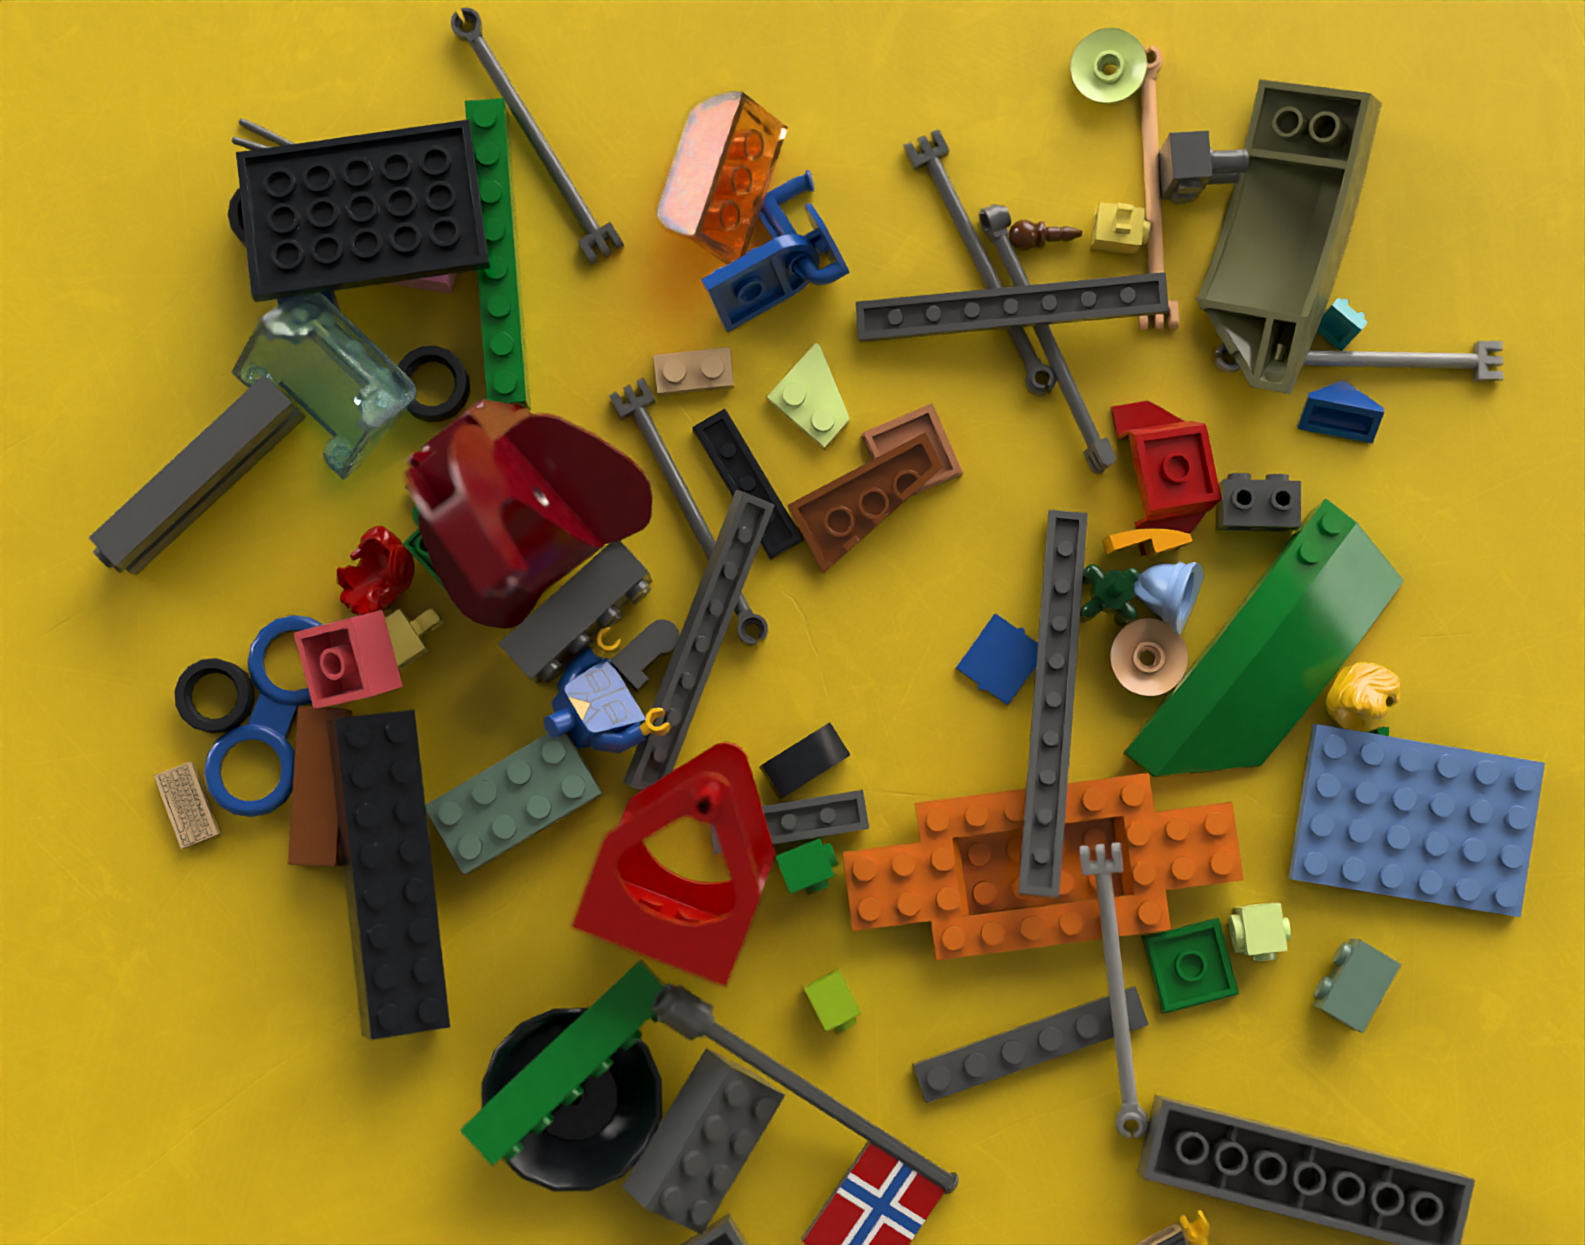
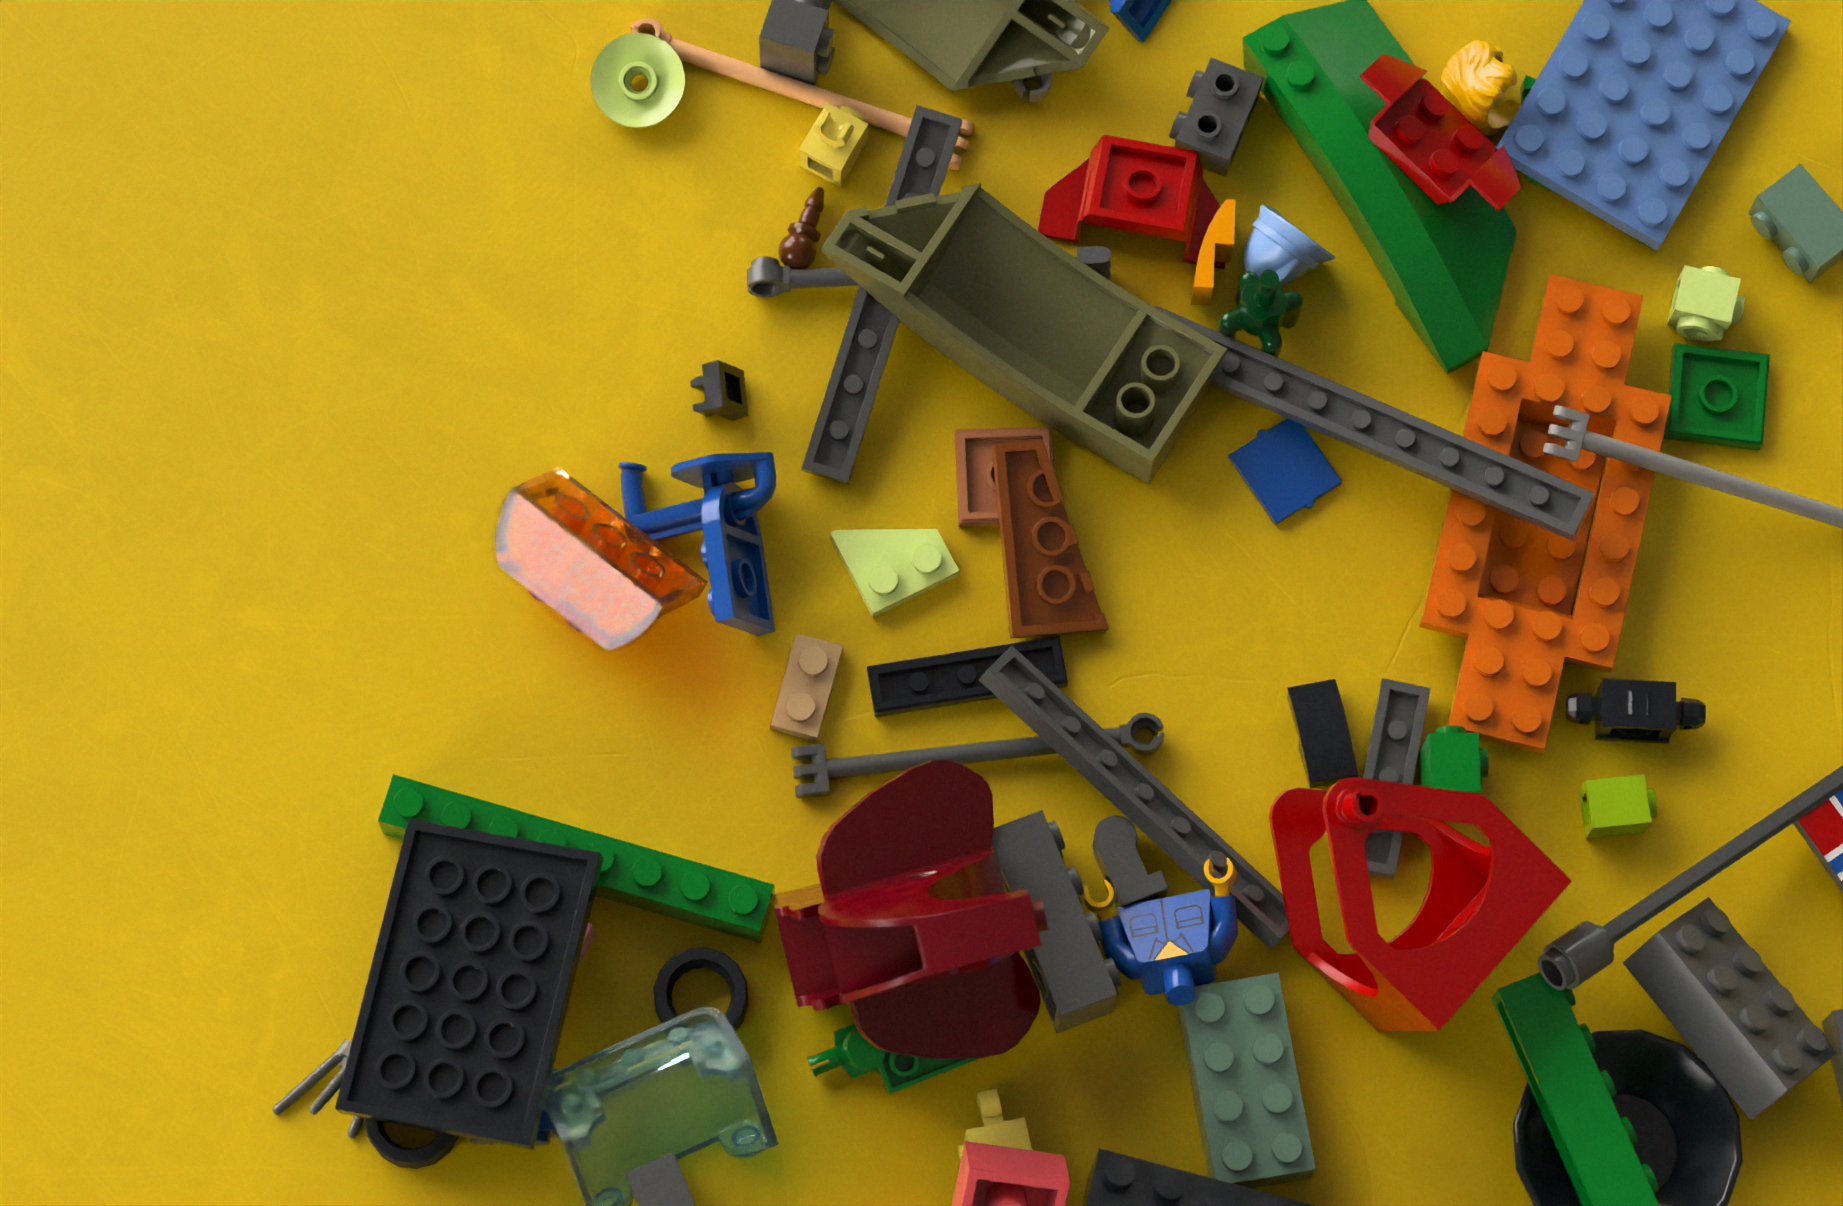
camera: 65 degrees left, 10 degrees down
(380, 575) = (911, 1144): red hair -> none
(595, 234) = (593, 739): dark grey hinge -> none
(893, 222) = (723, 391): none -> tile
(912, 989) = (1635, 711): none -> black piece
(931, 158) = (662, 321): dark grey hinge -> none
(1023, 1046) = (1744, 617): dark grey plate -> none
(1033, 424) = (1032, 322): none -> olive slope
(1168, 654) = (1352, 282): light nougat dish -> none
(1302, 673) = (1433, 138): none -> red piece

